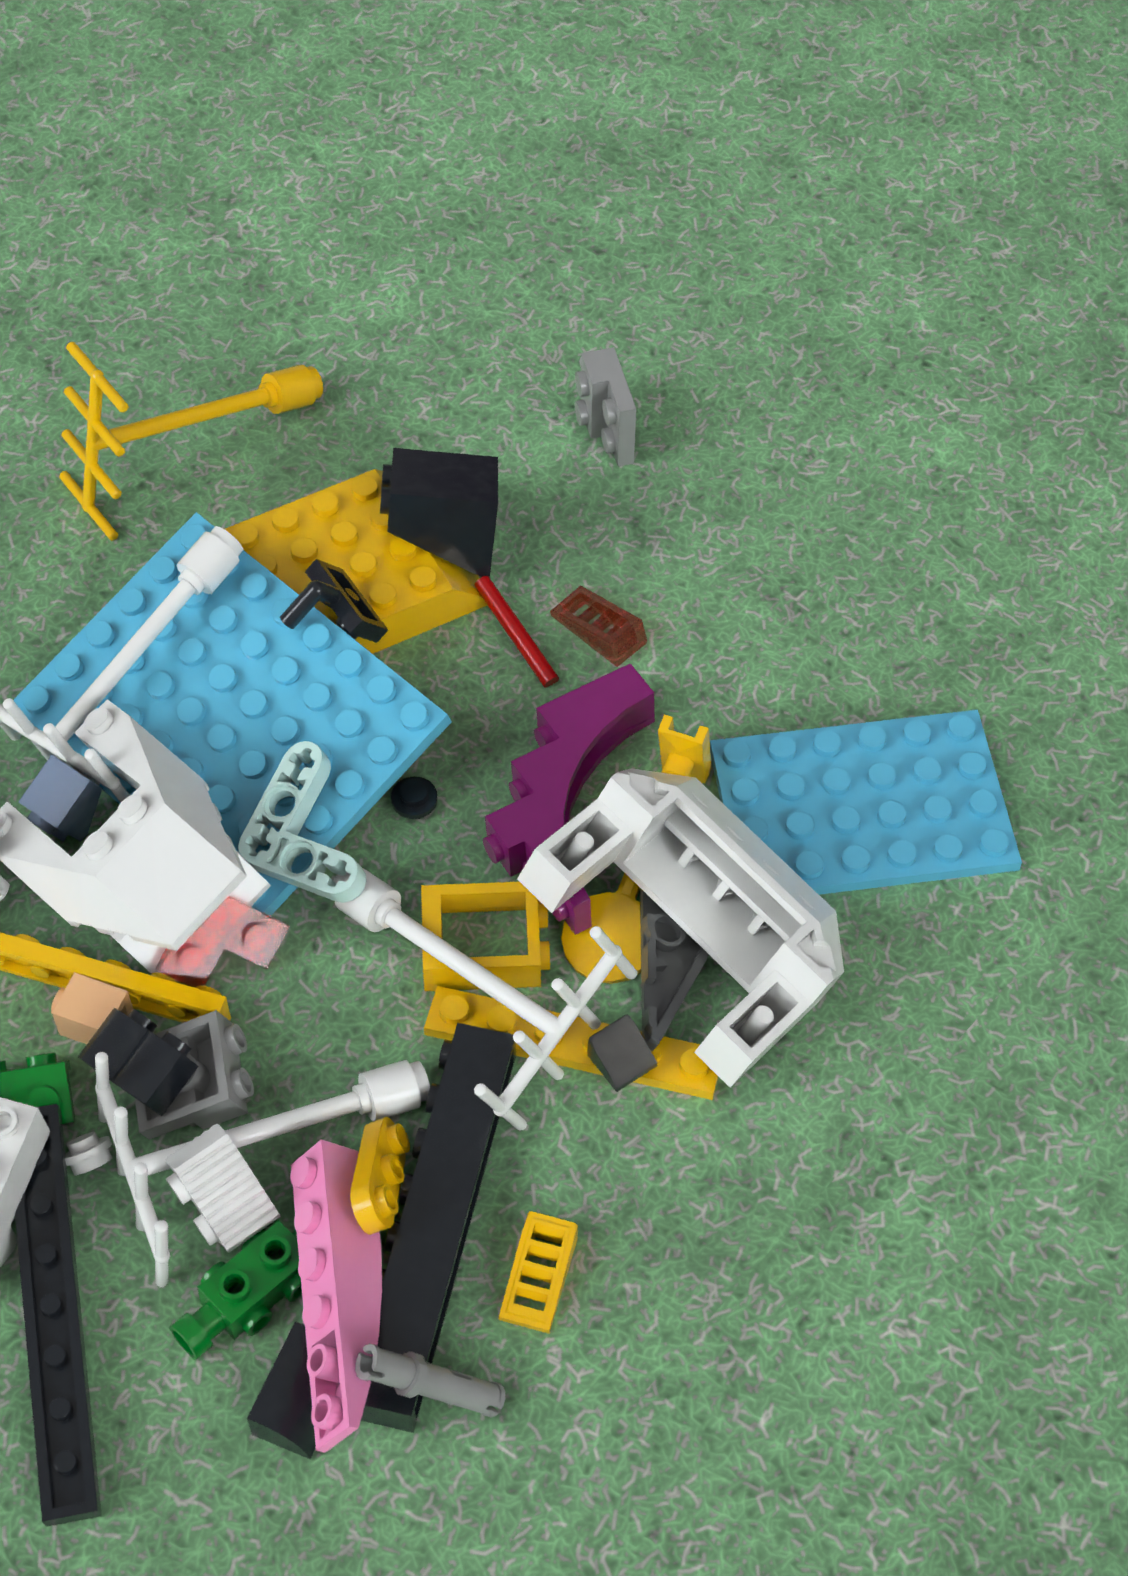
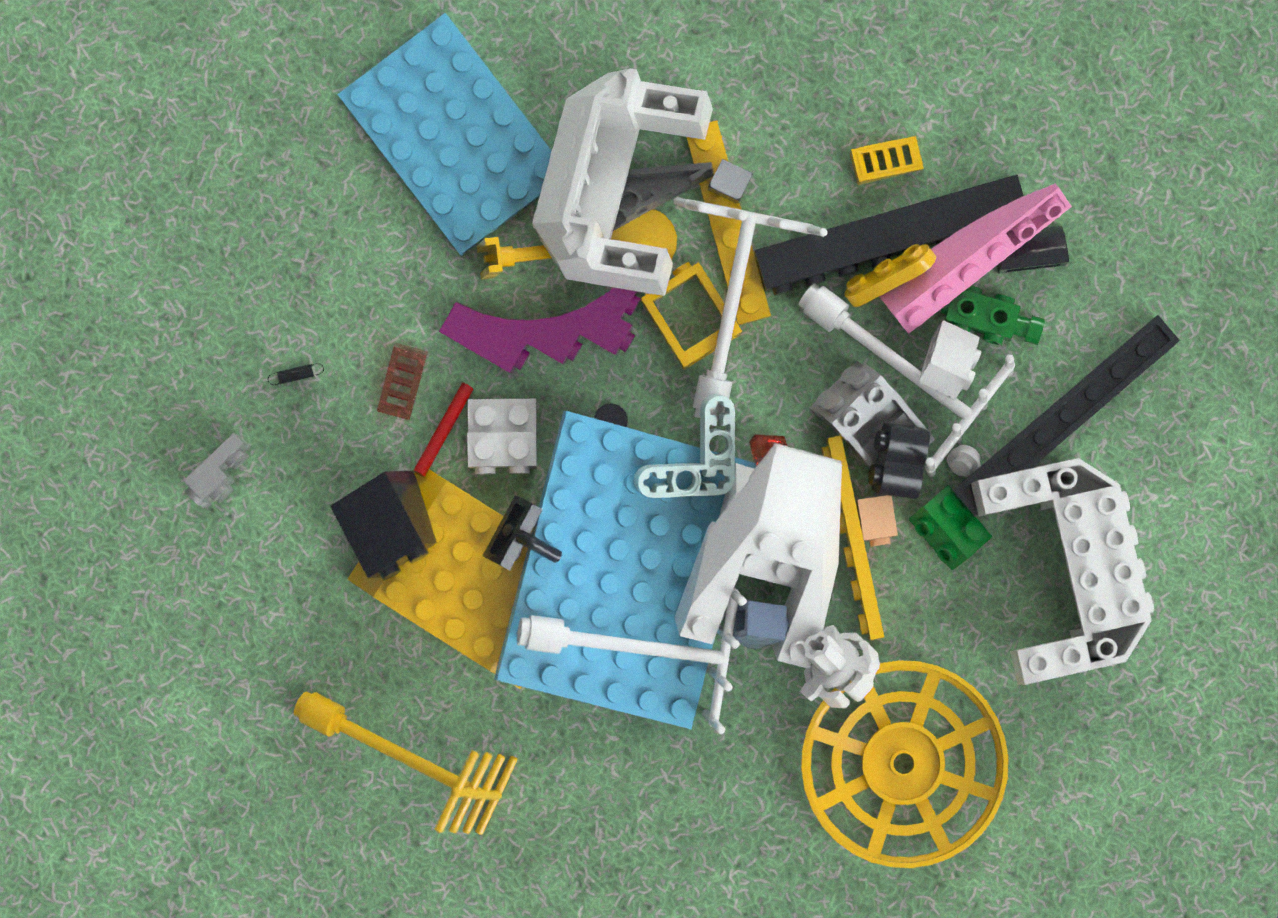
camera: 115 degrees left, 30 degrees up
(252, 1045) = (852, 399): none -> light grey plate
(414, 1376) = (1001, 180): light grey pin -> none
(473, 682) = (502, 435): none -> white plate
(672, 532) = (295, 374): none -> black piece

